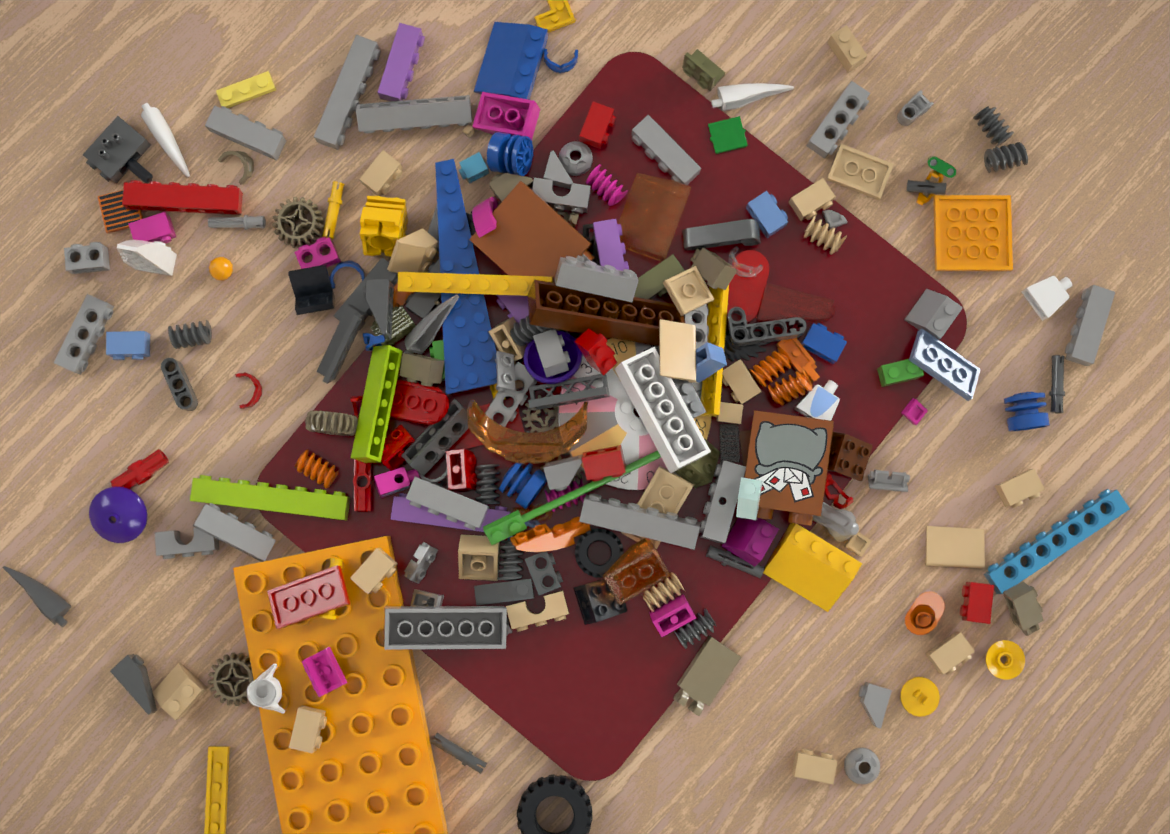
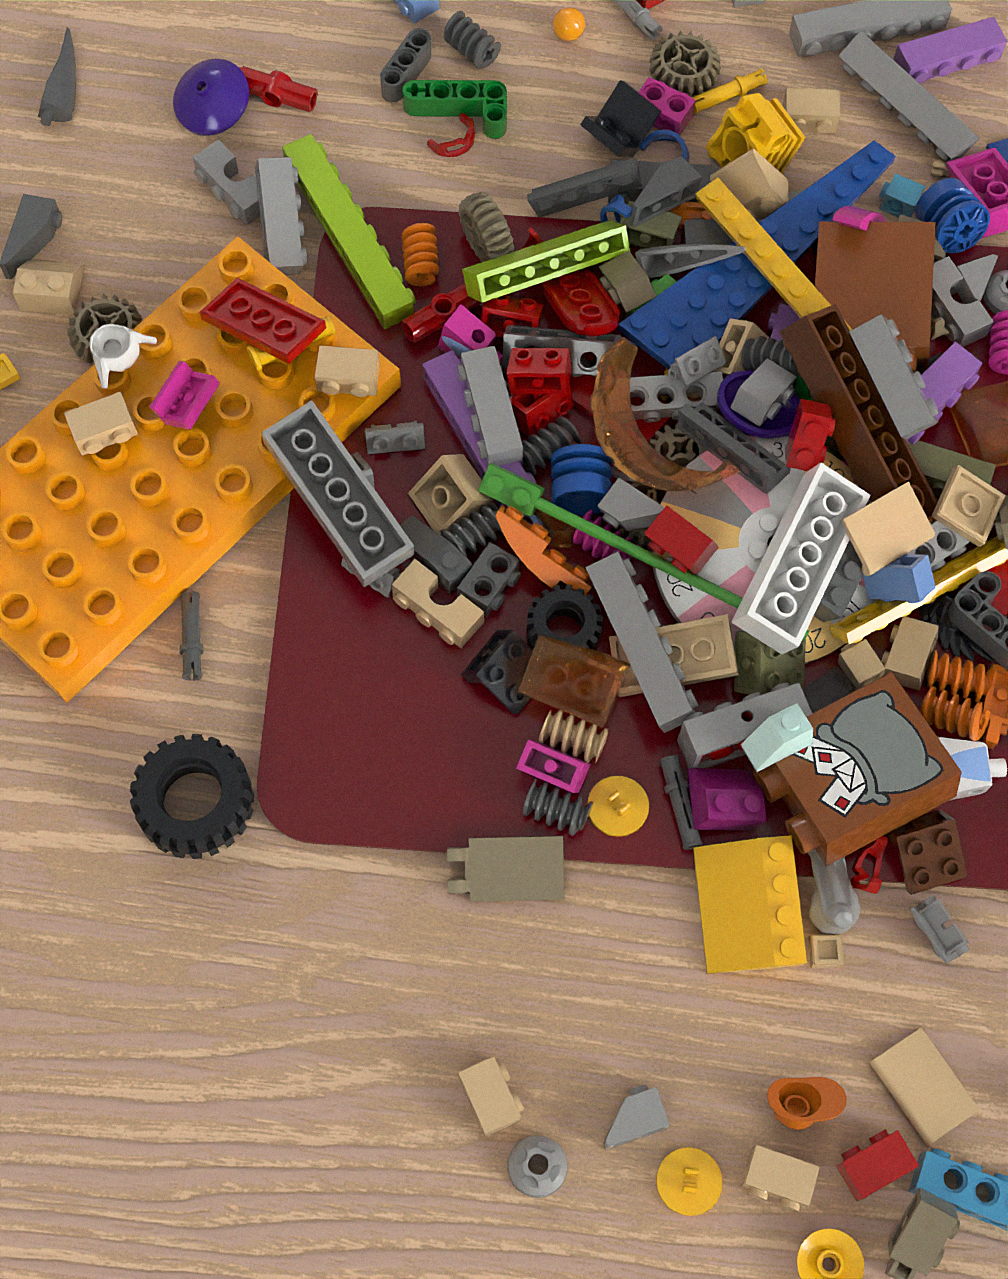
camera: 50 degrees right, 15 degrees down
(227, 374) = (455, 97): none -> green beam
(446, 461) = (539, 371): none -> red brick
(712, 593) = (618, 806): none -> yellow piece

